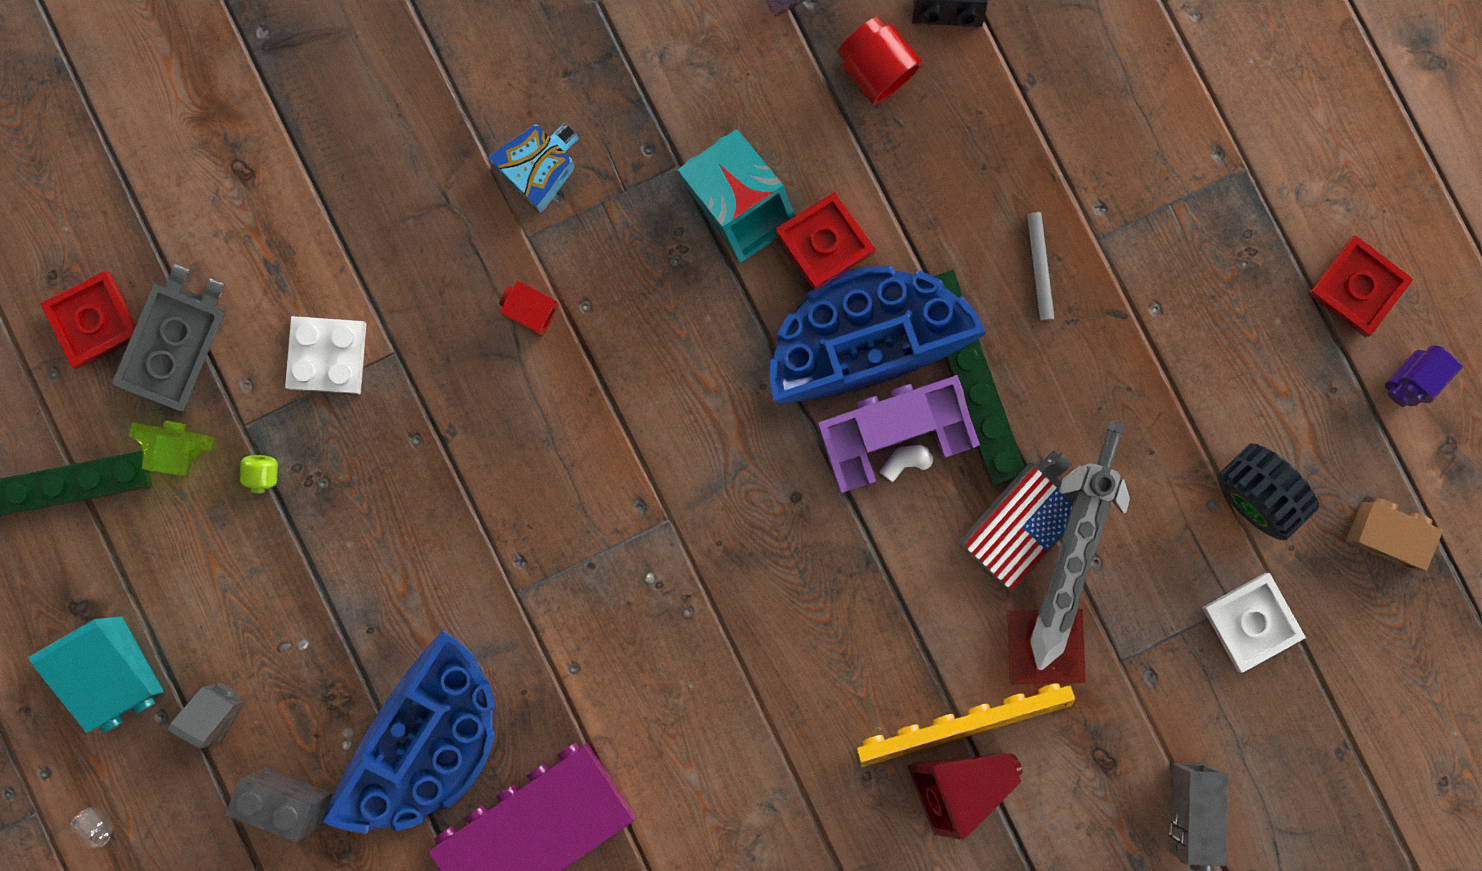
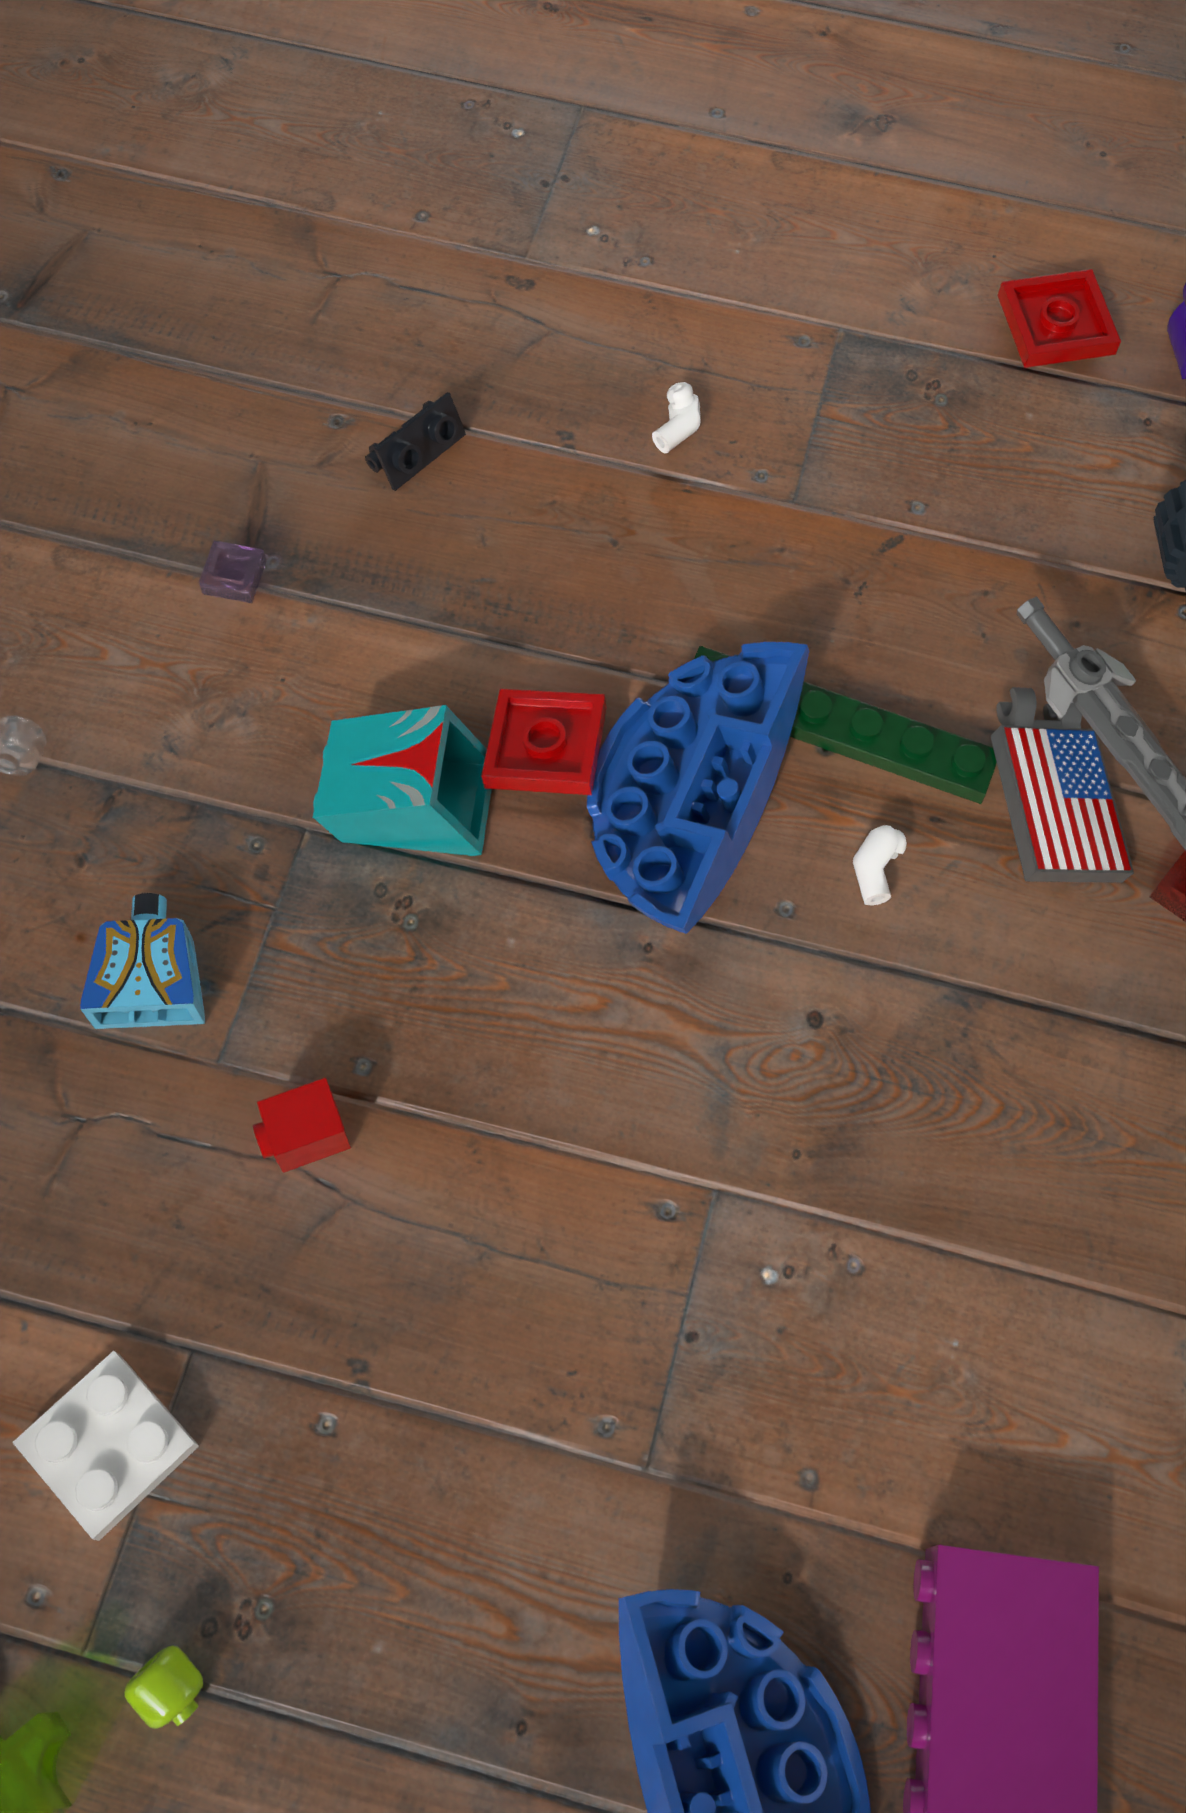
camera: 50 degrees left, 20 degrees down
(878, 60) = (403, 531): red piece -> none
(881, 424) = (810, 851): medium lavender bracket -> none
(1040, 266) = (774, 569): light grey bar -> none
(1097, 135) = (683, 416): none -> white arm

